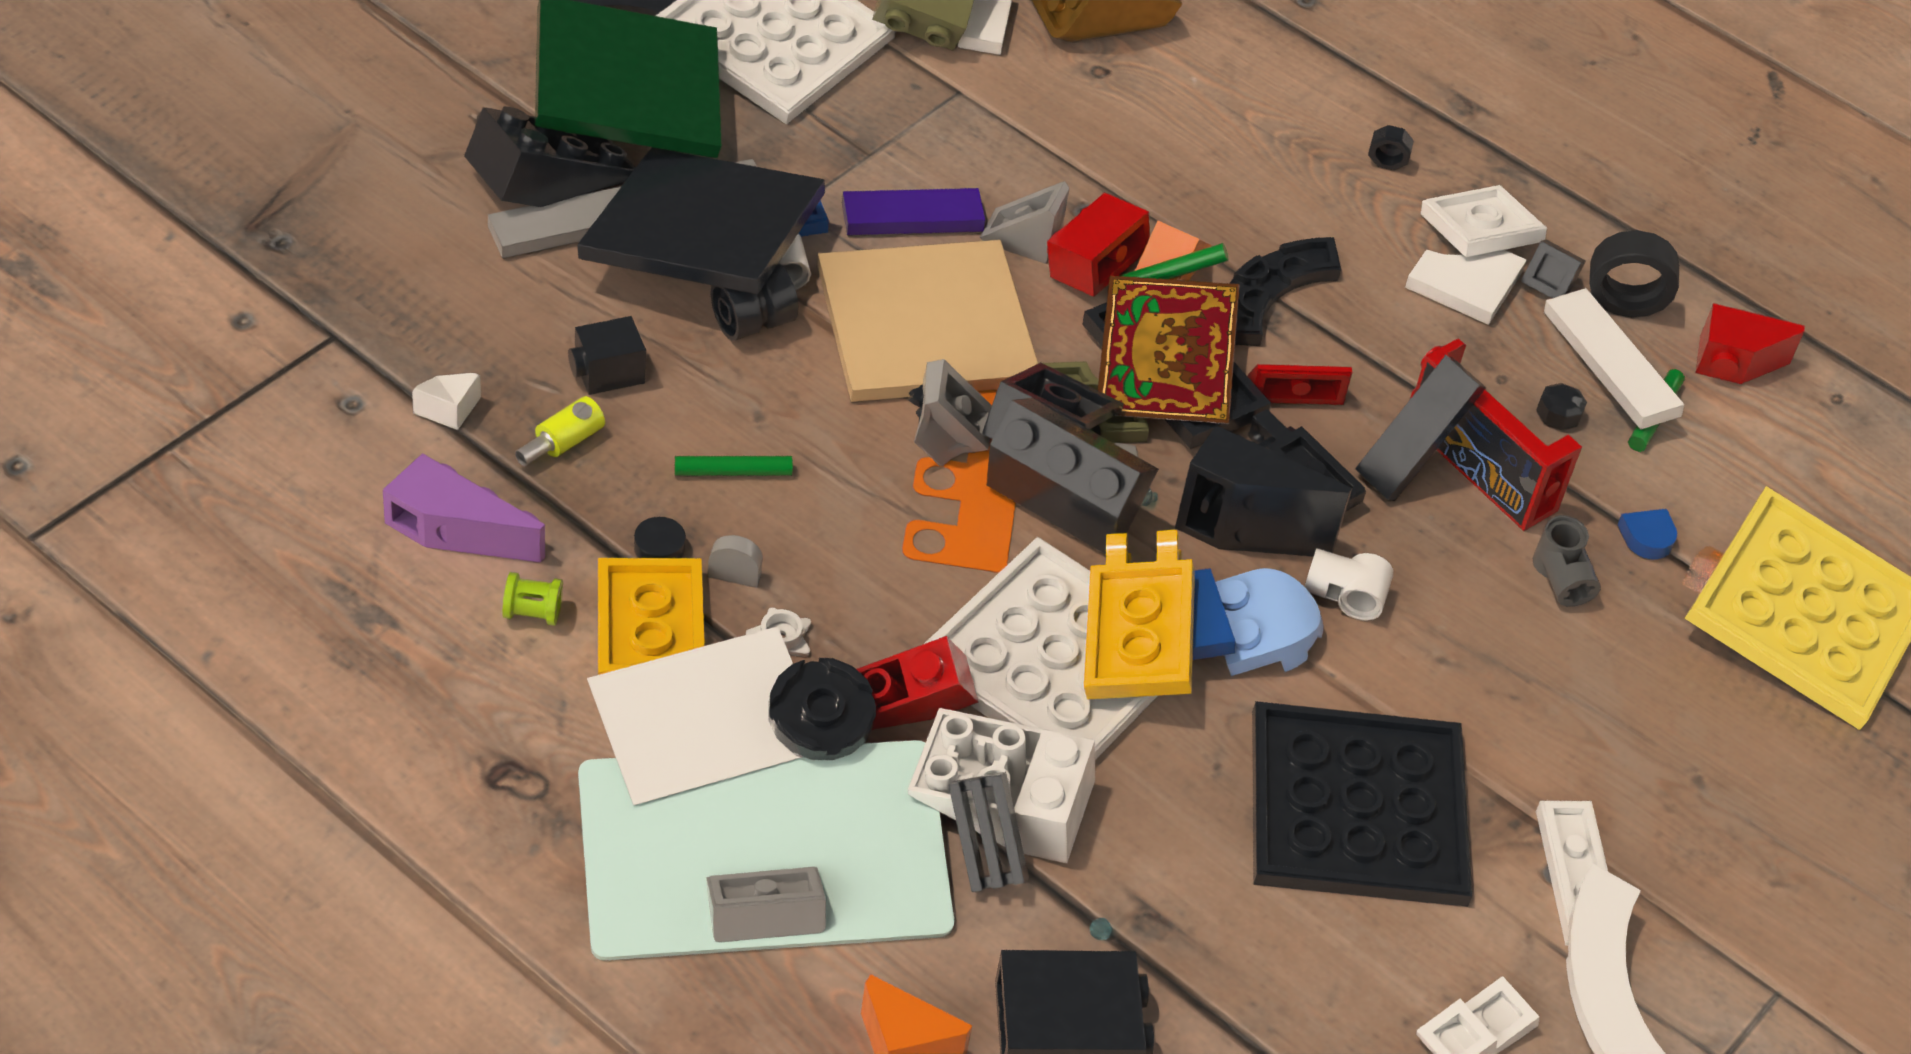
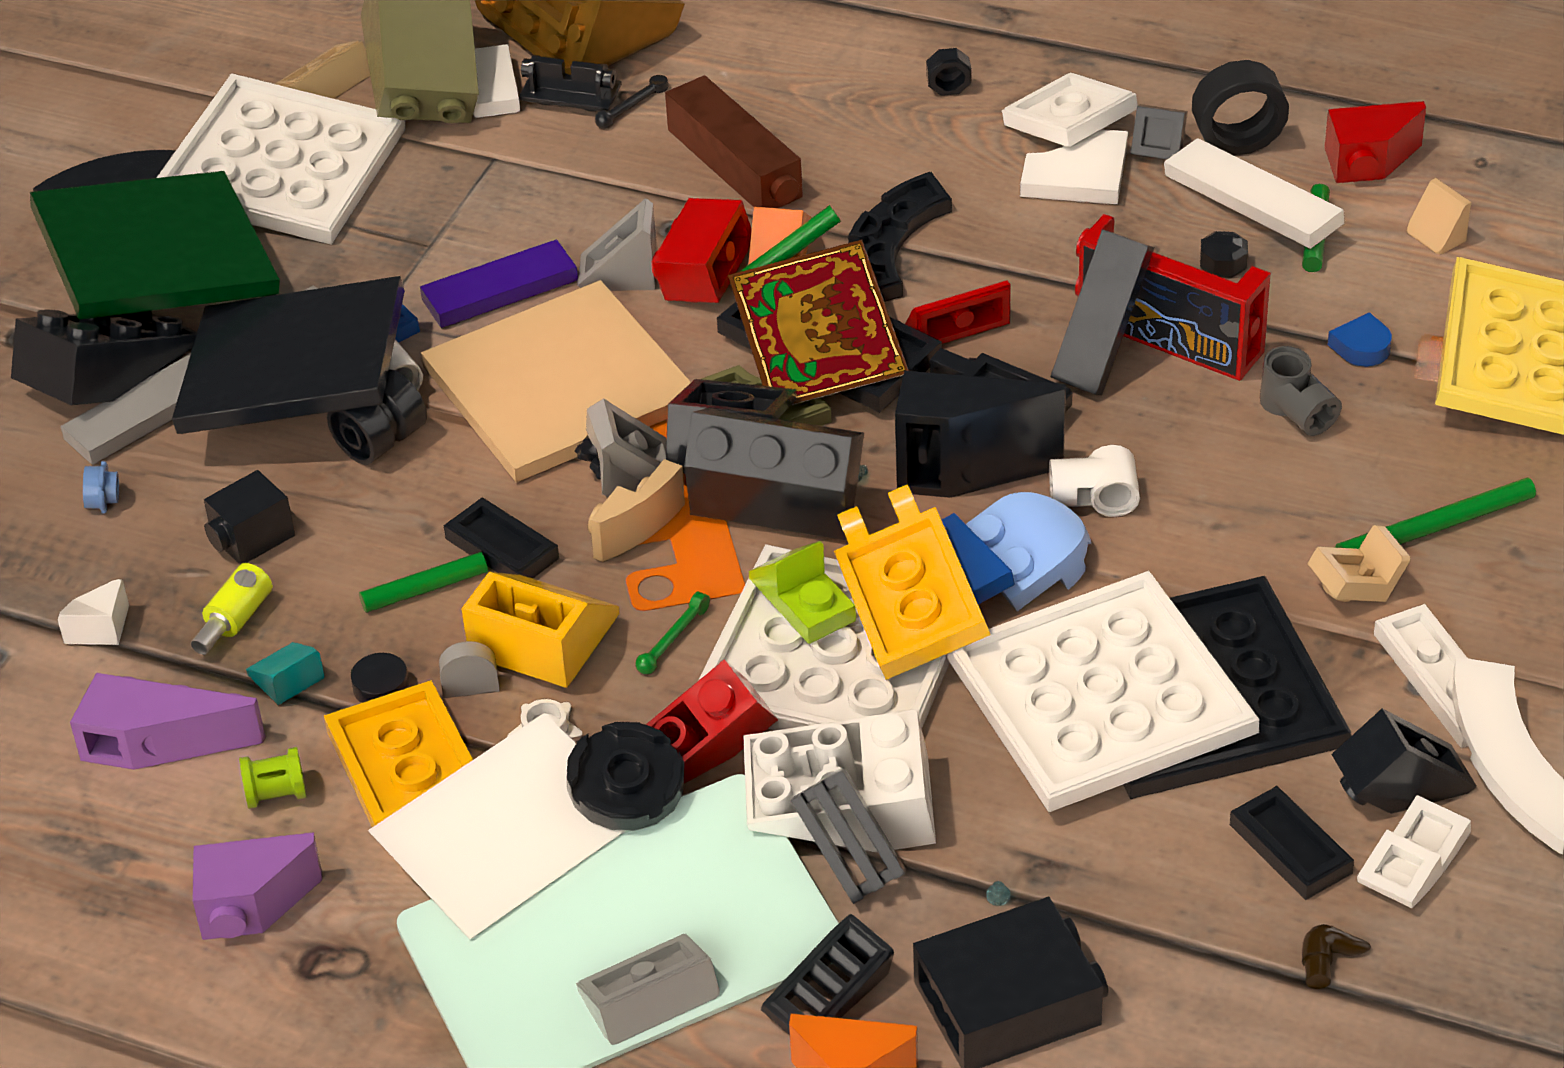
camera: 10 degrees left, 5 degrees down
(475, 686) = (251, 882): none -> medium lavender slope
(498, 282) = (100, 487): none -> medium blue plate
(585, 506) = (287, 671): none -> teal slope
(809, 540) = (536, 625): none -> yellow slope
(815, 452) = (502, 540): none -> black tile
(932, 472) = (635, 516): none -> tan slope
(949, 920) = (852, 950): none -> black slope
(958, 570) = (647, 662): none -> green hinge
(1050, 594) = (804, 592): none -> lime slope
(1060, 52) = (588, 86): none -> black hinge
(1131, 70) = (657, 84): none -> black hinge
(1170, 152) = (734, 144): none -> copper brick
(1269, 778) = (1102, 691): none -> white tile
(1375, 977) = (1291, 842): none -> black tile
(1499, 939) = (1396, 761): none -> black slope
(1548, 751) = (1362, 572): none -> tan bracket
(1638, 726) = (1454, 513): none -> green bar
(1771, 441) = (1440, 218): none -> tan slope

